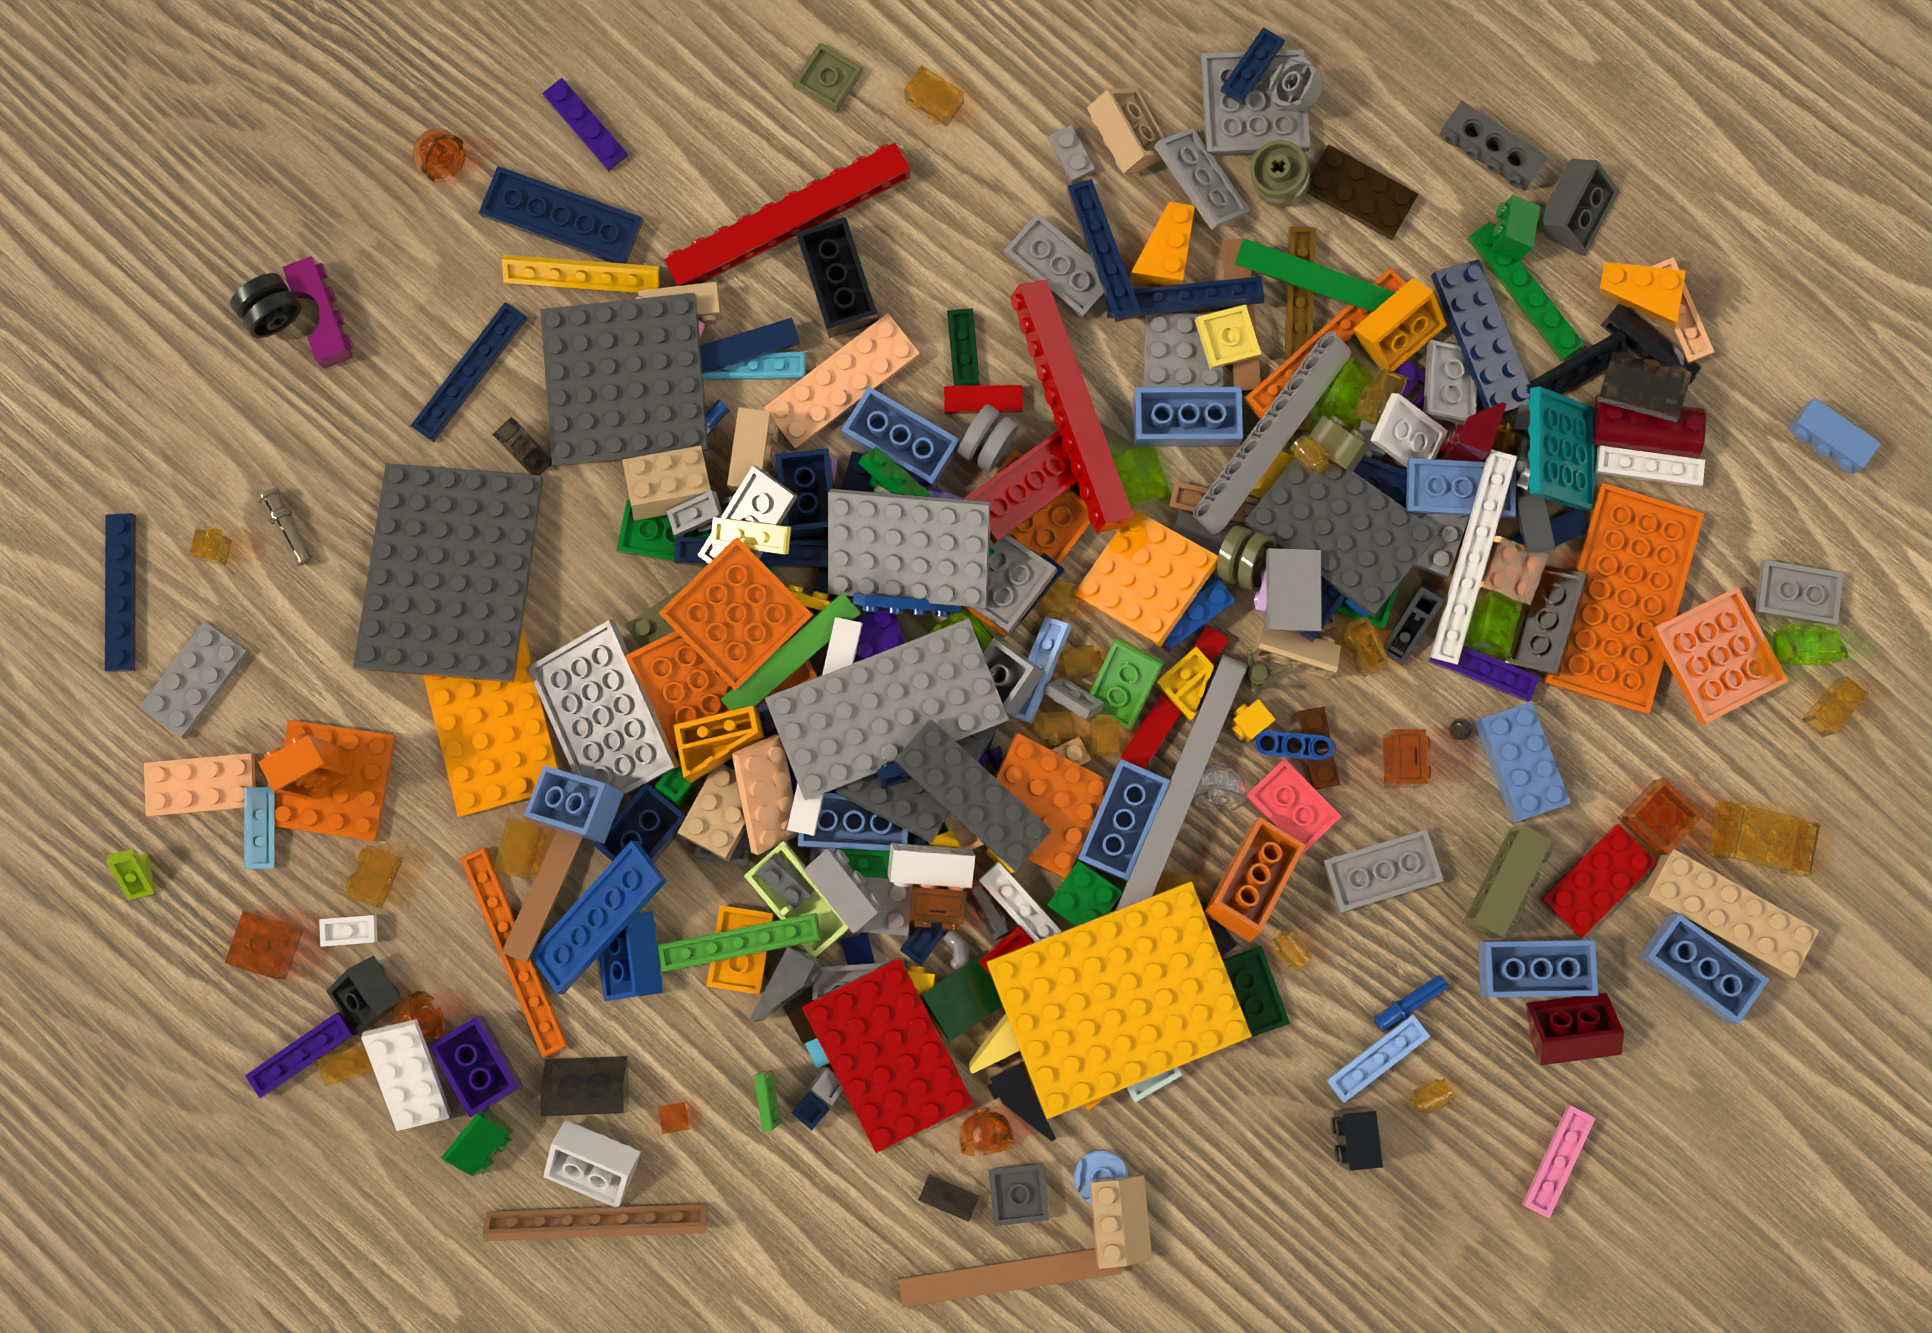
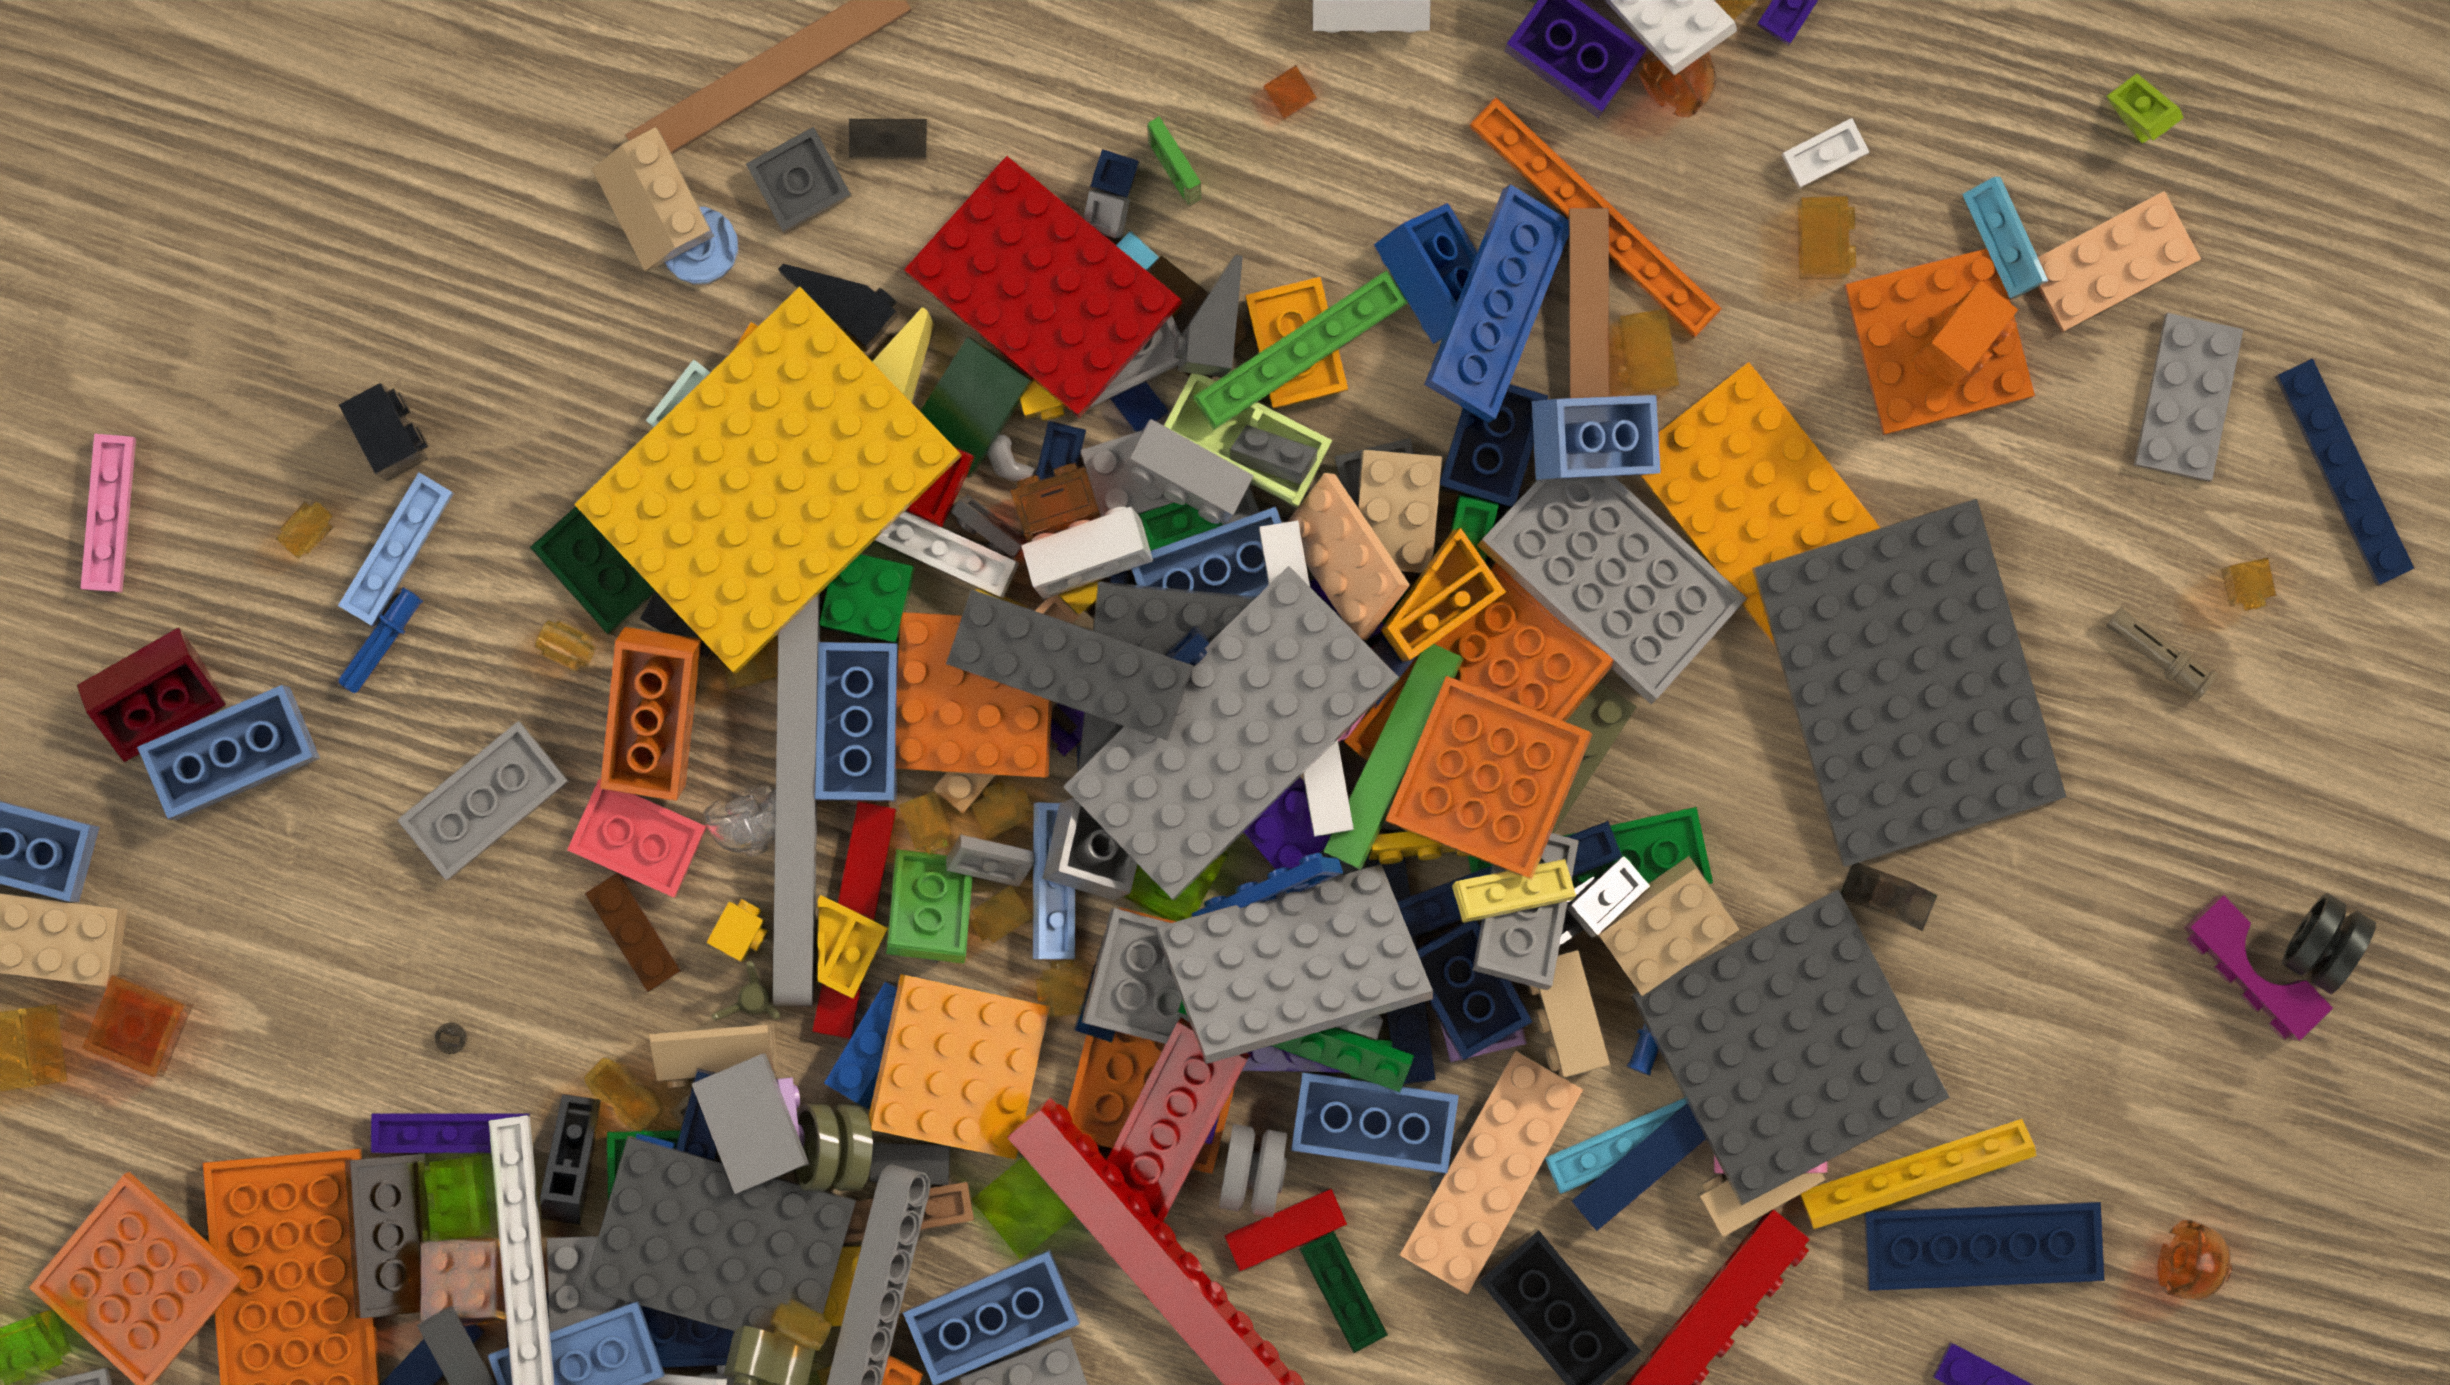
camera: 155 degrees right, 5 degrees up
(264, 945) = (1926, 89): clear orange brick -> none
(364, 994) = (1765, 79): pearl dark grey slope -> none
(469, 372) = (2012, 973): dark blue tile -> none
(585, 1086) = (1423, 83): clear smoke slope -> none
(985, 1132) = (873, 239): clear orange cylinder -> none
(1283, 741) = (682, 910): blue beam -> none
(1406, 758) = (509, 961): clear orange brick -> none
(1508, 881) = (311, 850): olive brick -> none
(1522, 762) = (351, 1024): medium blue brick -> none
(1598, 880) = (188, 908): red plate -> none

